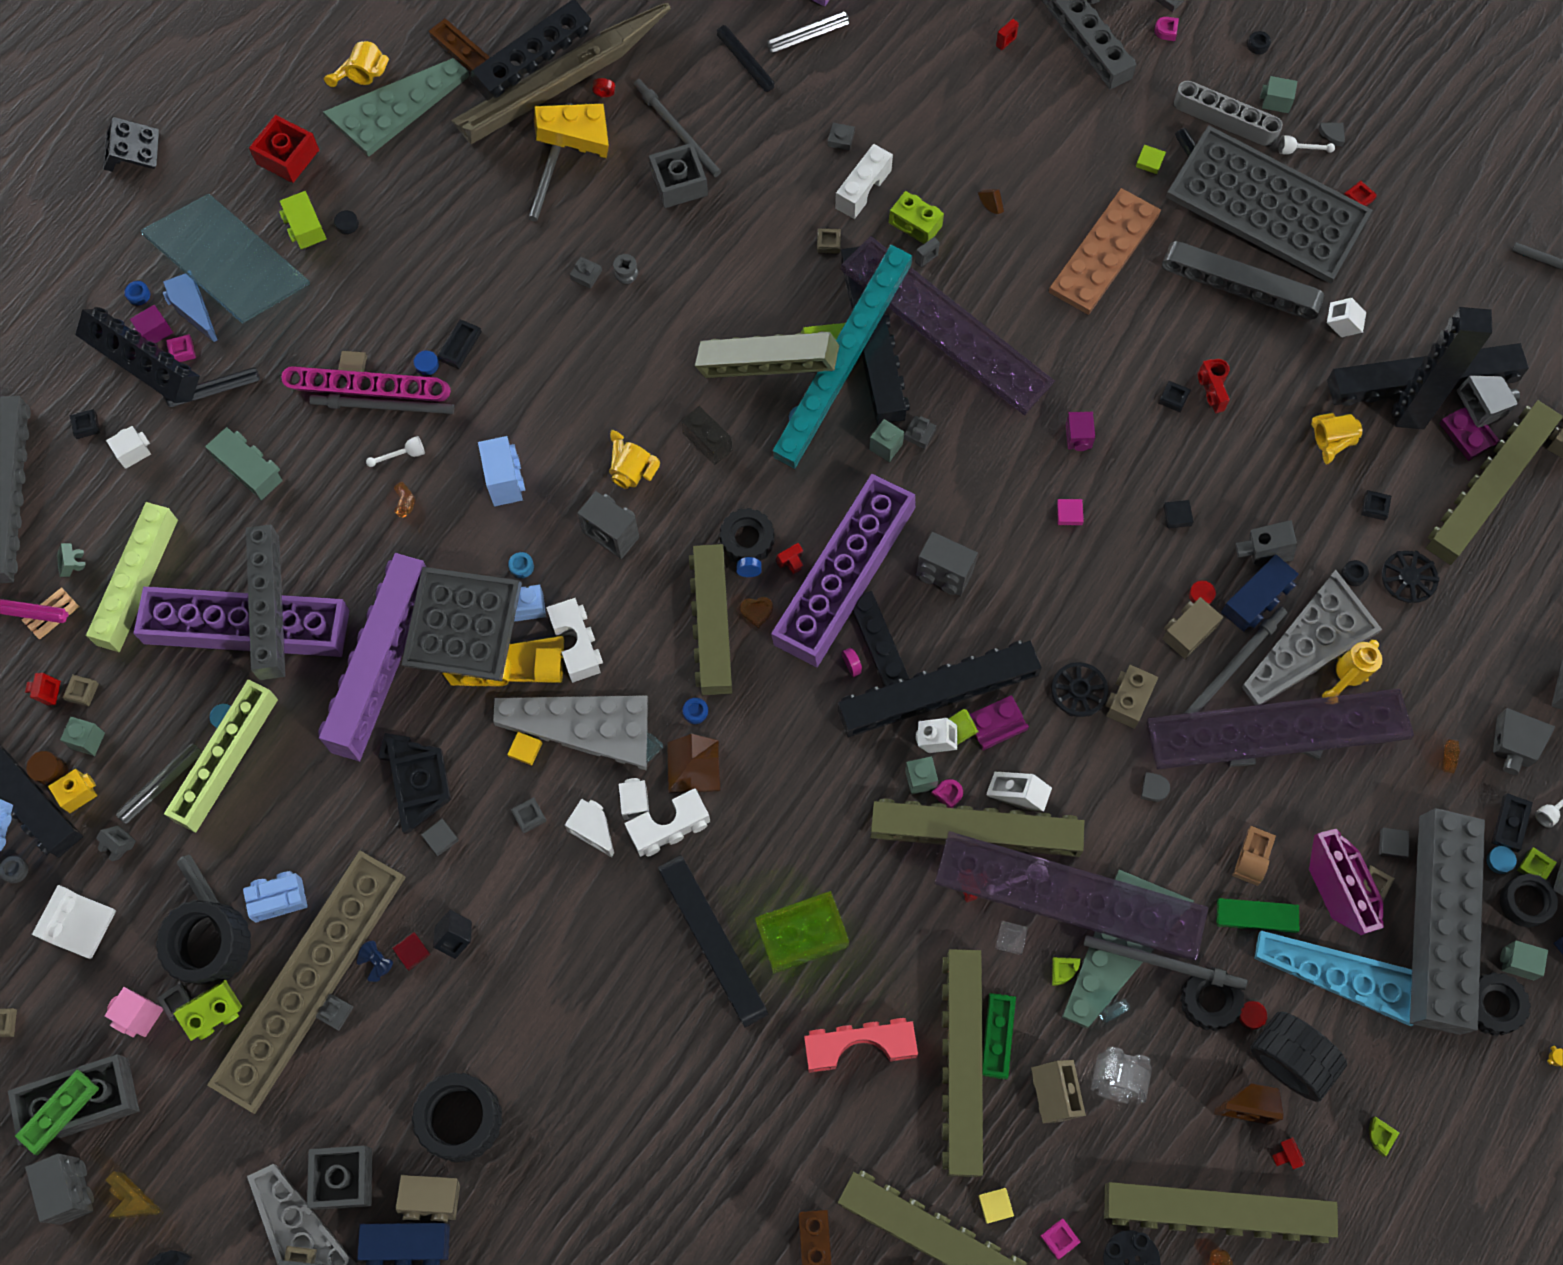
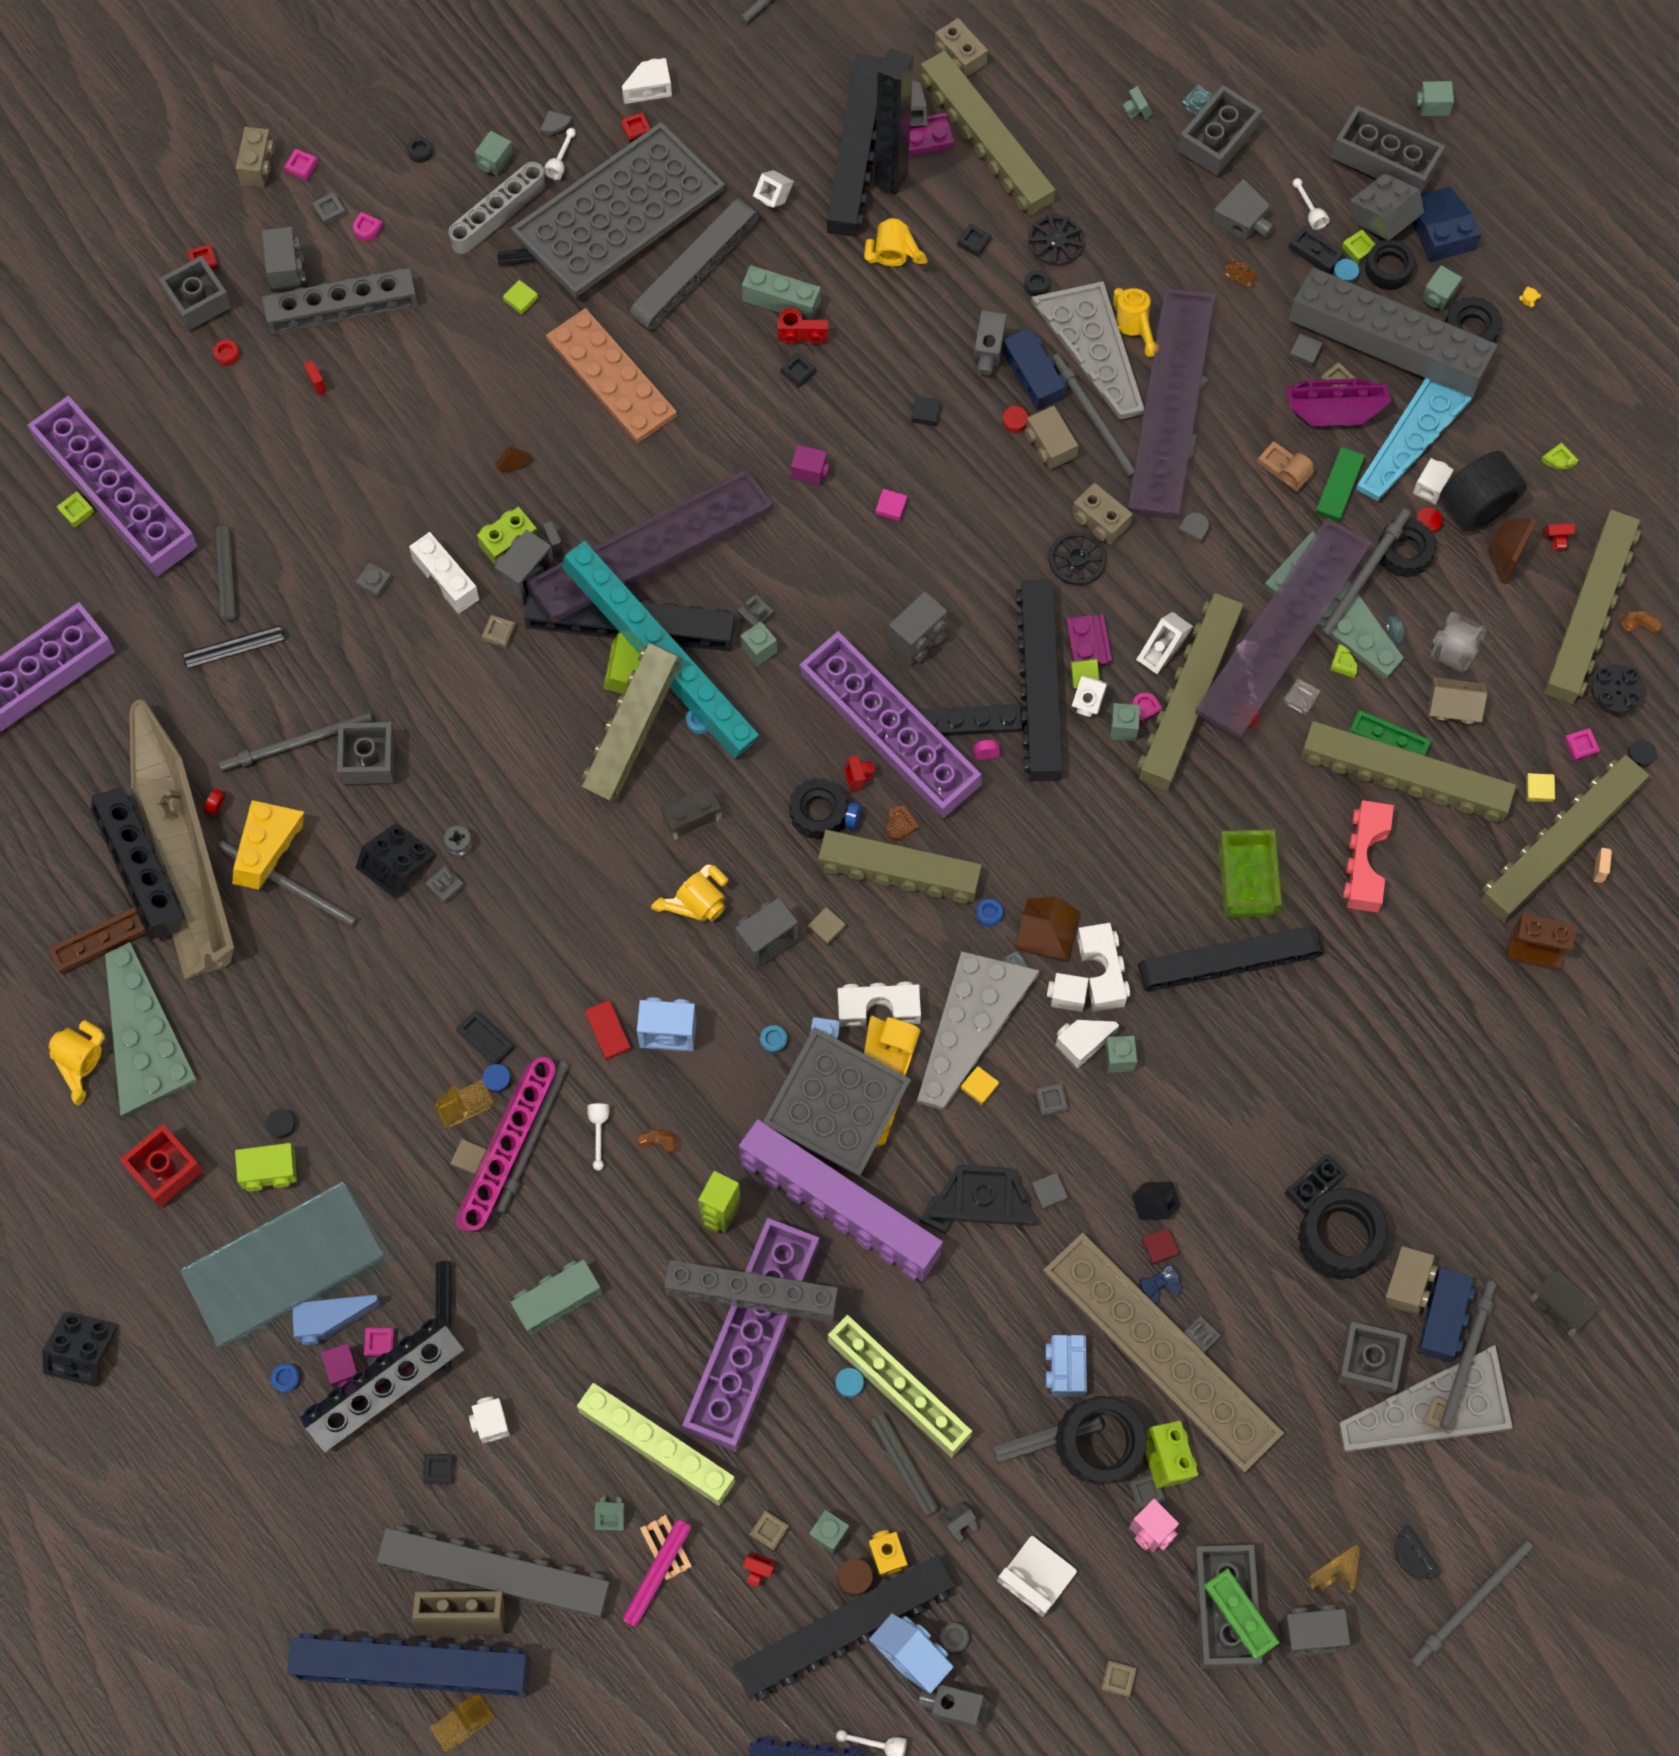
camera: 75 degrees left, 0 degrees up
(345, 555) = (719, 1202): none -> lime brick
(397, 345) = (462, 1104): none -> clear yellow slope
(496, 427) = (607, 1030): none -> red tile
(509, 1080) = (1314, 1183): none -> black slope
(585, 862) = (1120, 1054): none -> sand green brick
(597, 227) = (392, 858): none -> black bracket
(639, 577) = (826, 926): none -> dark tan tile
(889, 228) = (523, 561): none -> dark grey brick
(1242, 356) = (780, 292): none -> sand green brick
(1300, 1004) = (1433, 480): none -> white brick
(1408, 188) = (648, 82): none -> white slope

